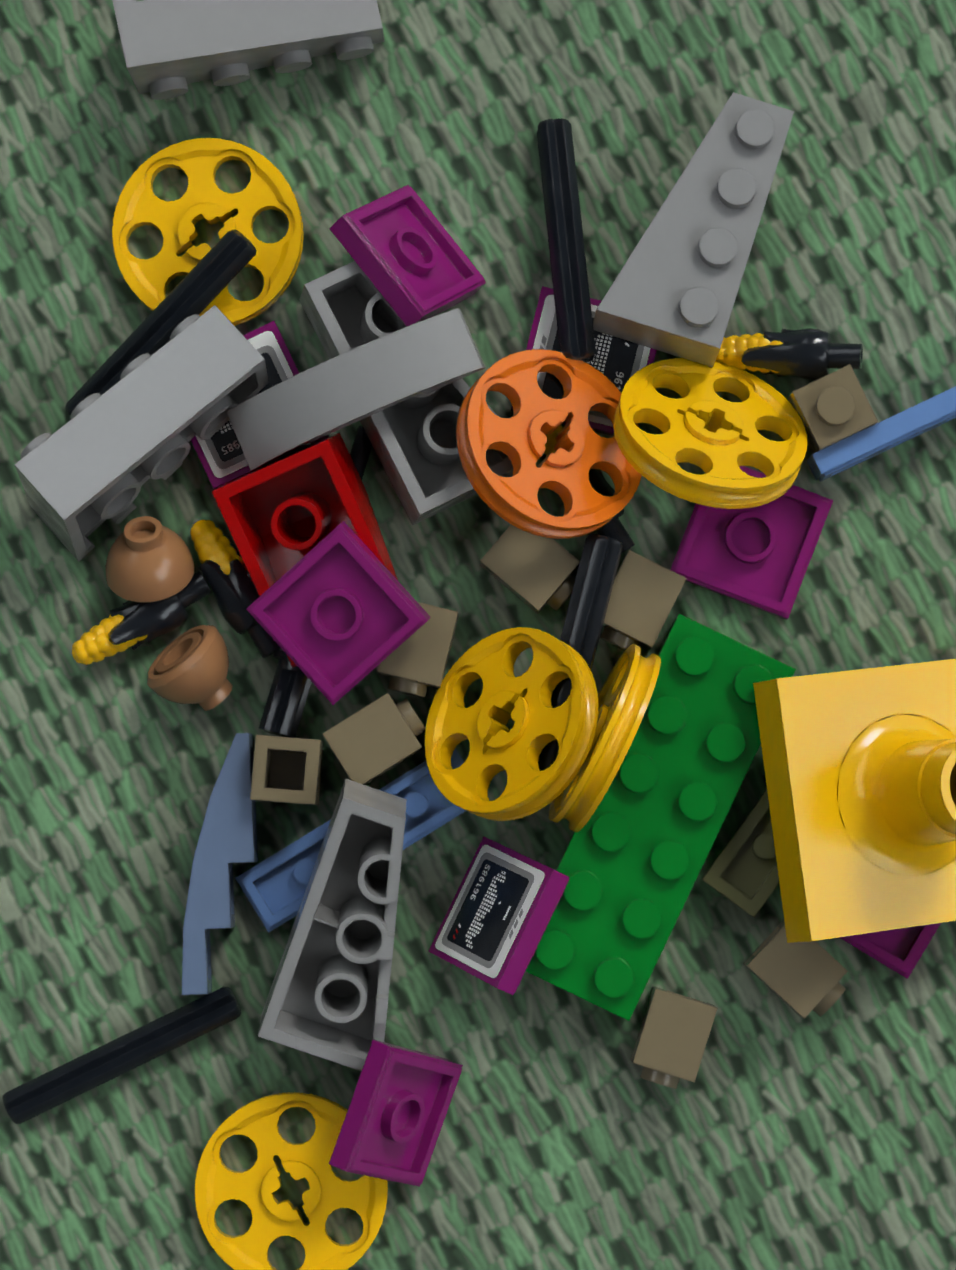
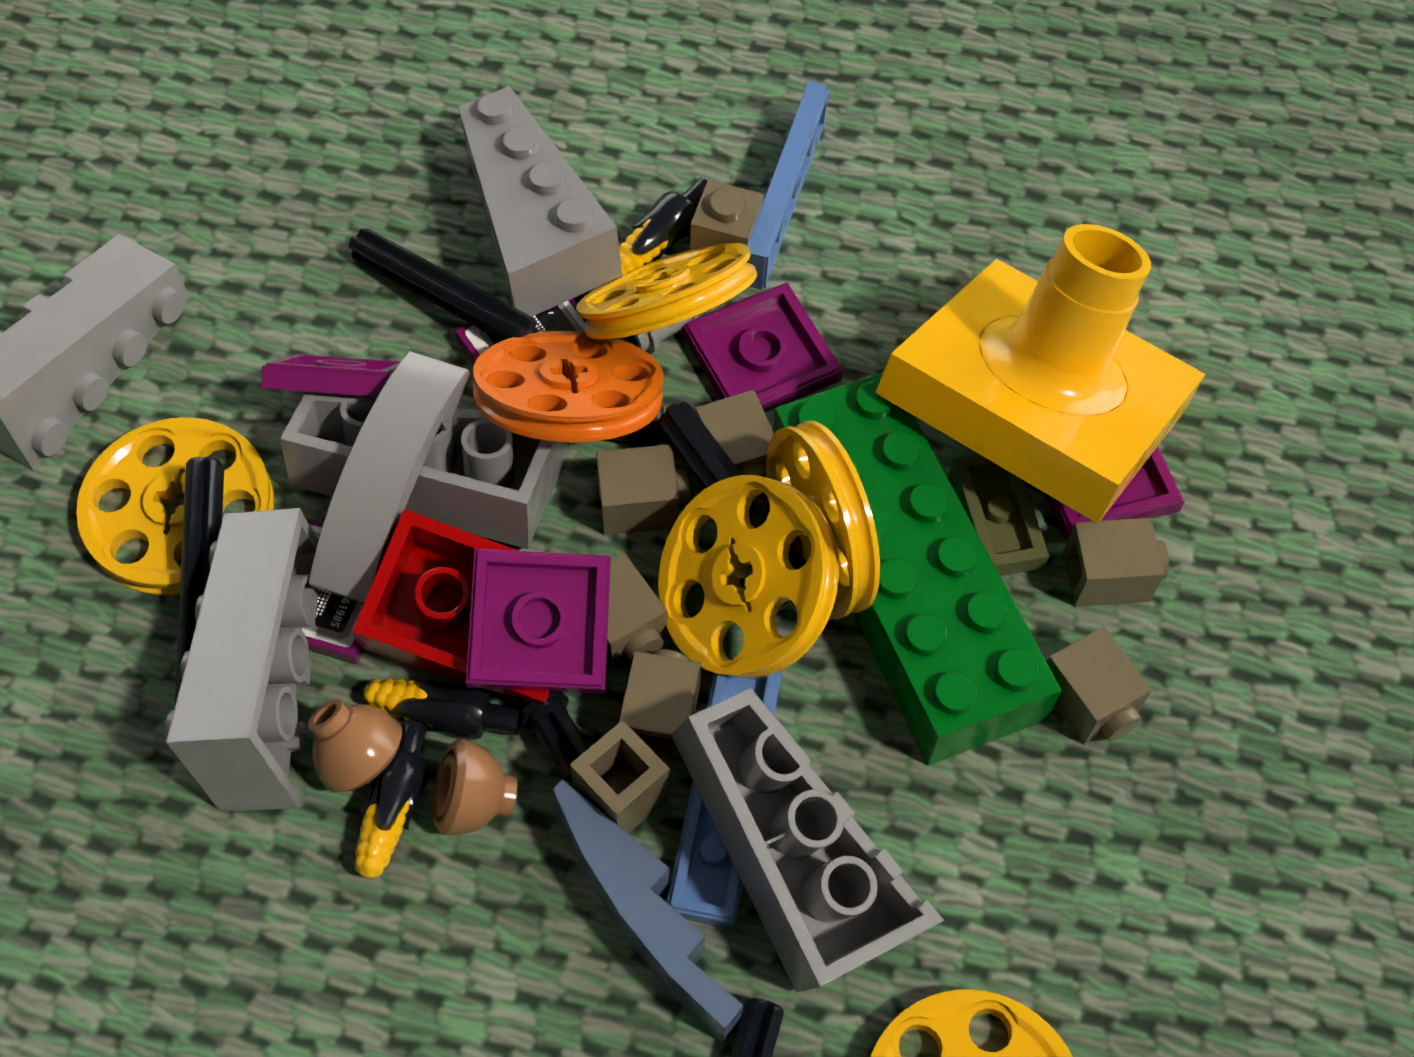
camera: 55 degrees left, 25 degrees down
(396, 1114) = (984, 941): magenta tile -> none
(499, 915) = (887, 721): tile -> none

